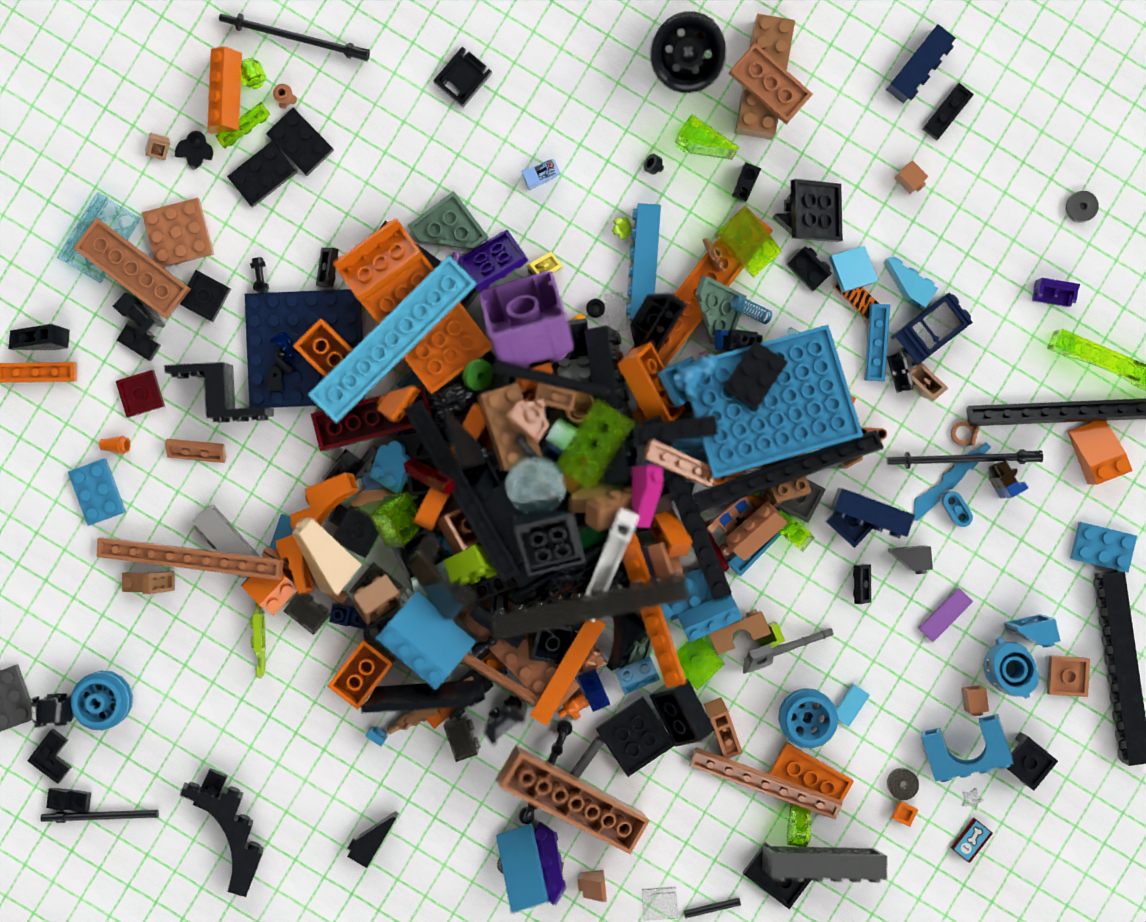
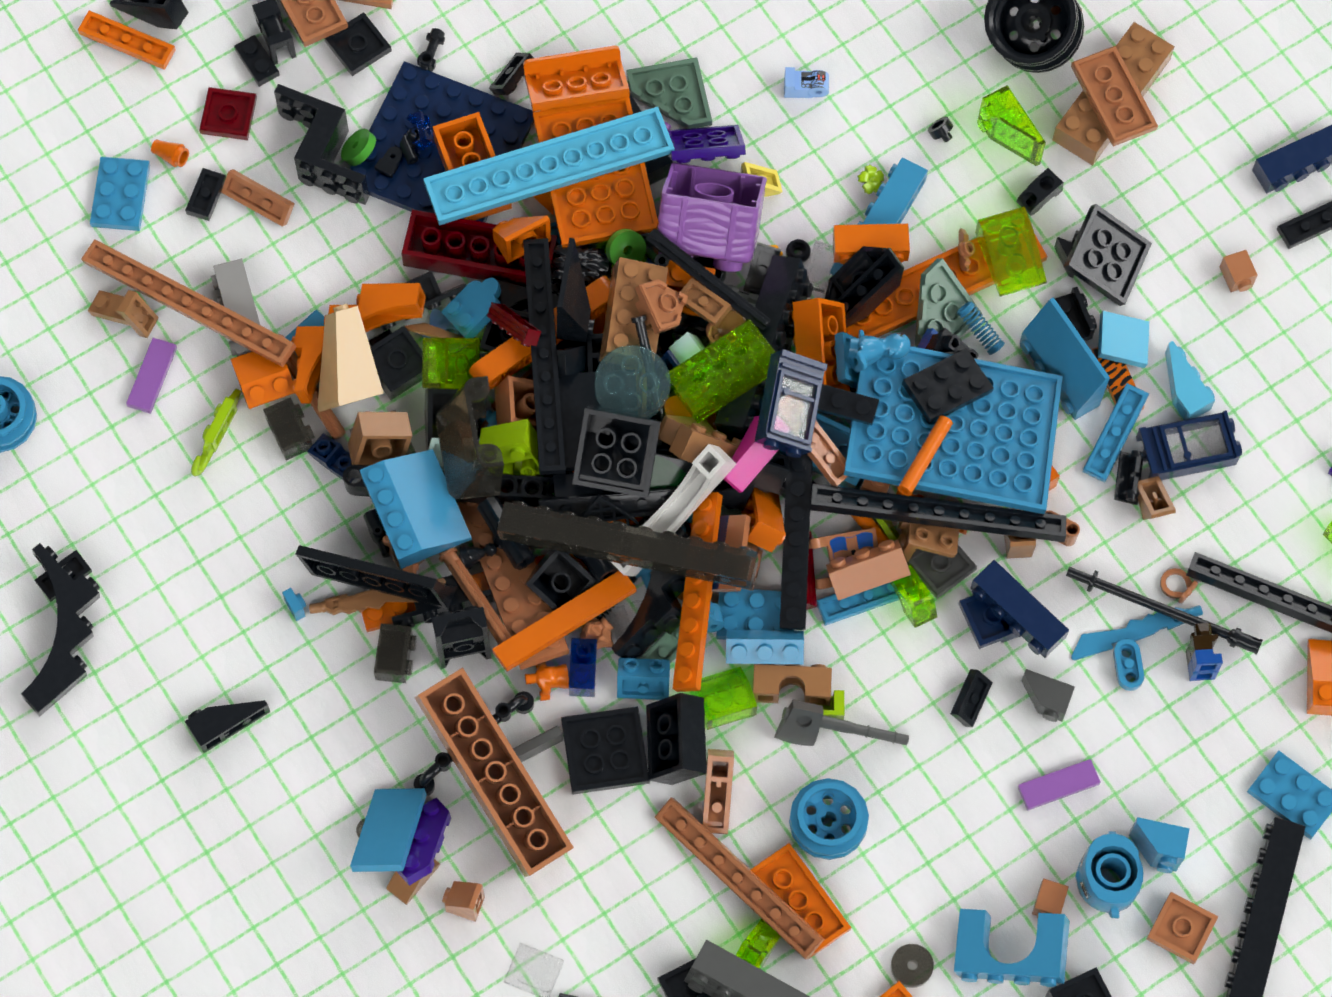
camera: 20 degrees right, 20 degrees down
(157, 465) = (205, 194): none -> black plate
(192, 616) = (151, 375): none -> medium lavender tile
(247, 379) = (358, 147): none -> bright green piece
(361, 673) = (316, 520): orange brick -> none
(650, 282) = (851, 238): none -> orange brick
(657, 455) = (790, 403): none -> dark blue door
(764, 439) = (925, 455): none -> orange piece
(822, 308) = (1062, 351): none -> dark azure slope
(851, 704) = (890, 838): medium azure tile -> none

